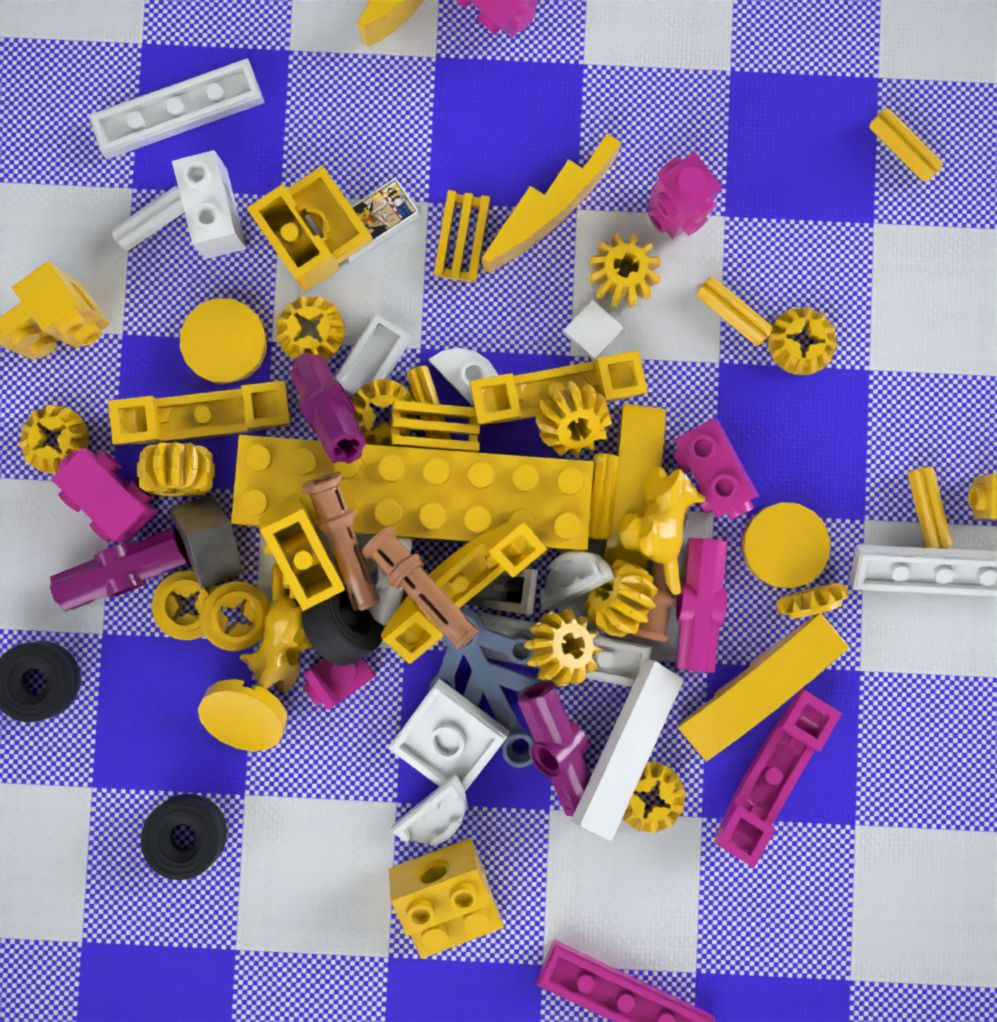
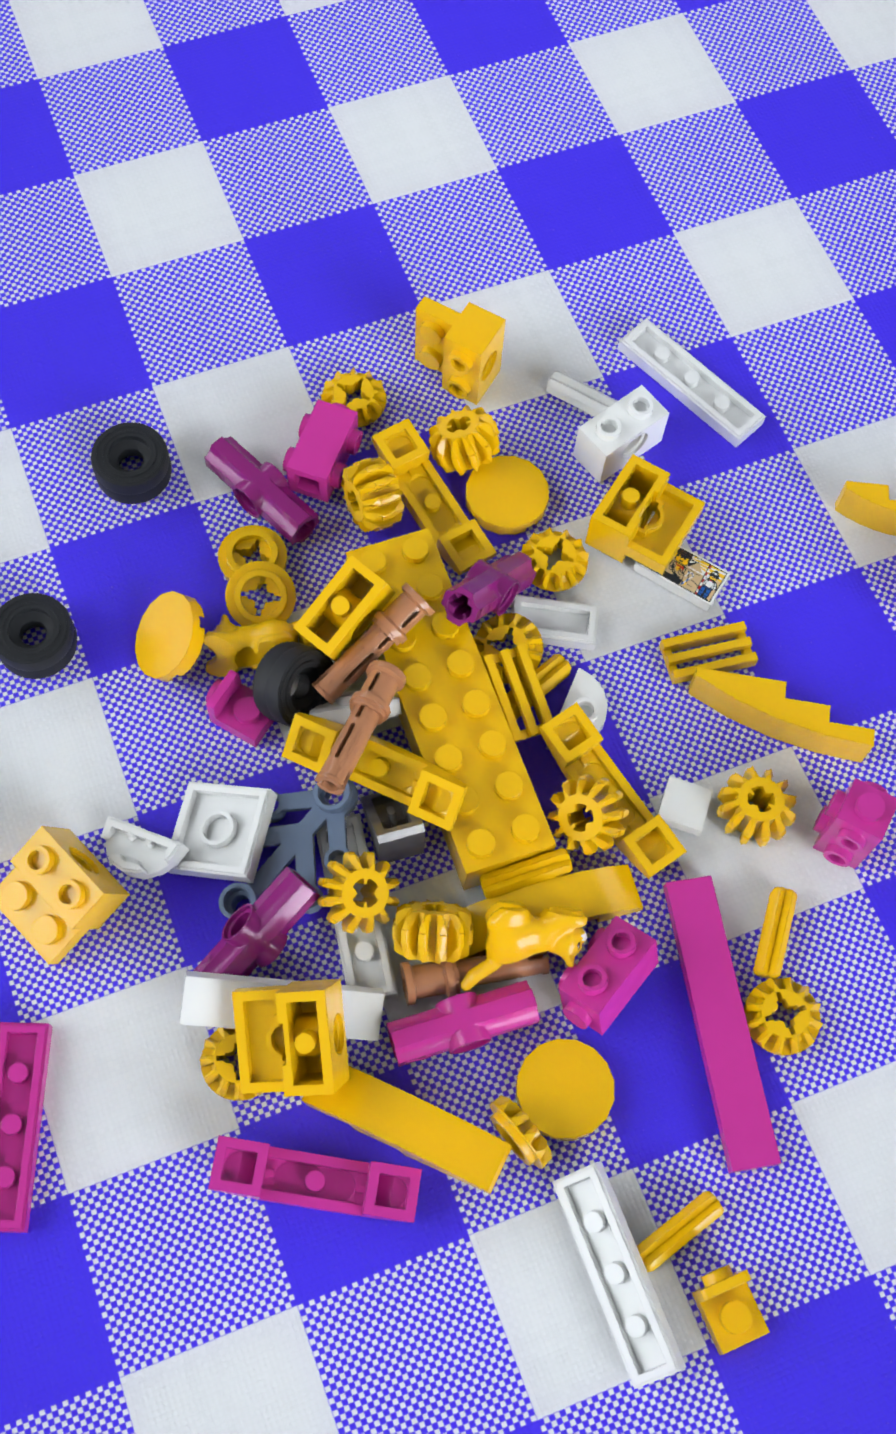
camera: 60 degrees right, 20 degrees down
(152, 356) = (464, 440): none -> yellow gear
(207, 540) = (318, 548): flat silver slope -> none
(572, 576) = (434, 881): white plate -> none
(667, 755) = (291, 1038): none -> yellow brick
(784, 393) = (721, 1025): none -> dark pink tile

